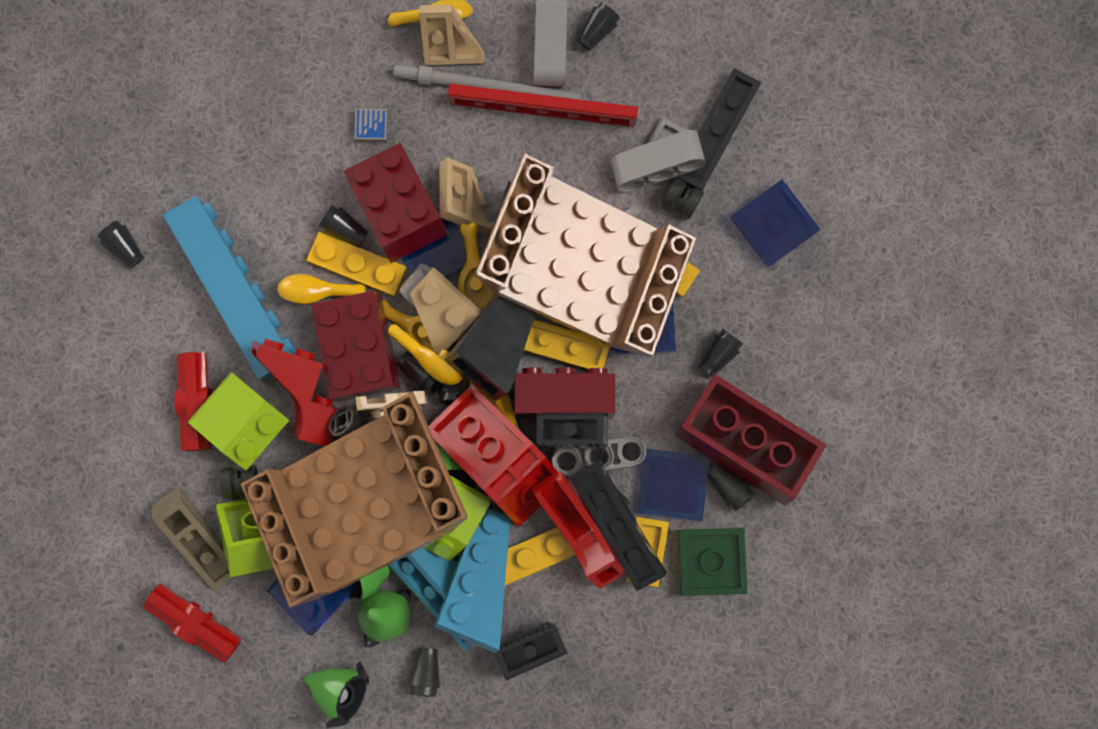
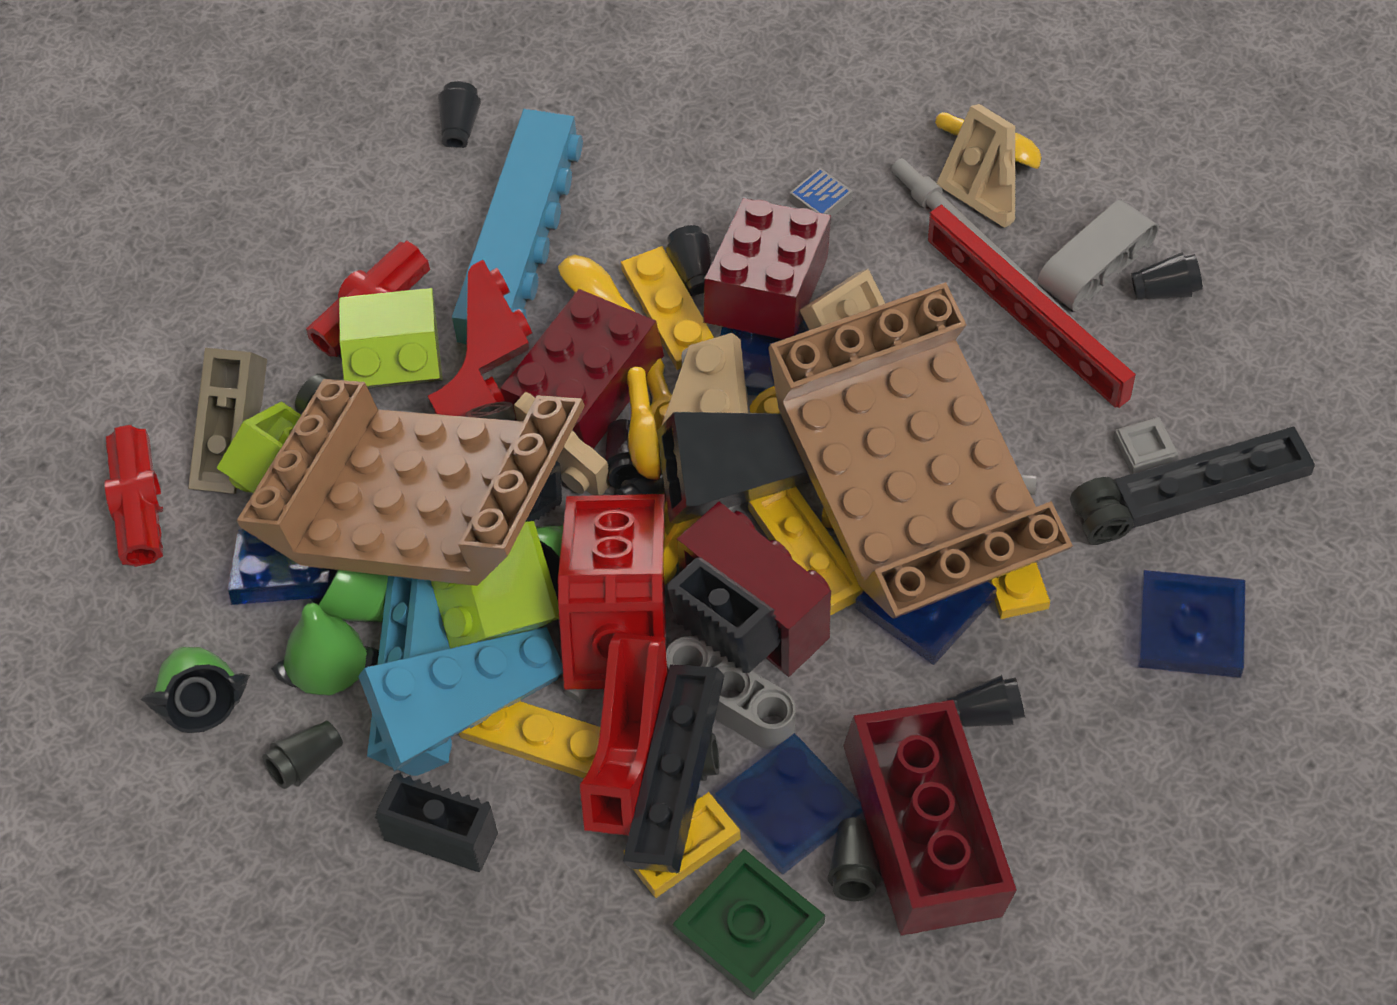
camera: 50 degrees right, 25 degrees down
(658, 161) = (1106, 445): light grey beam -> none

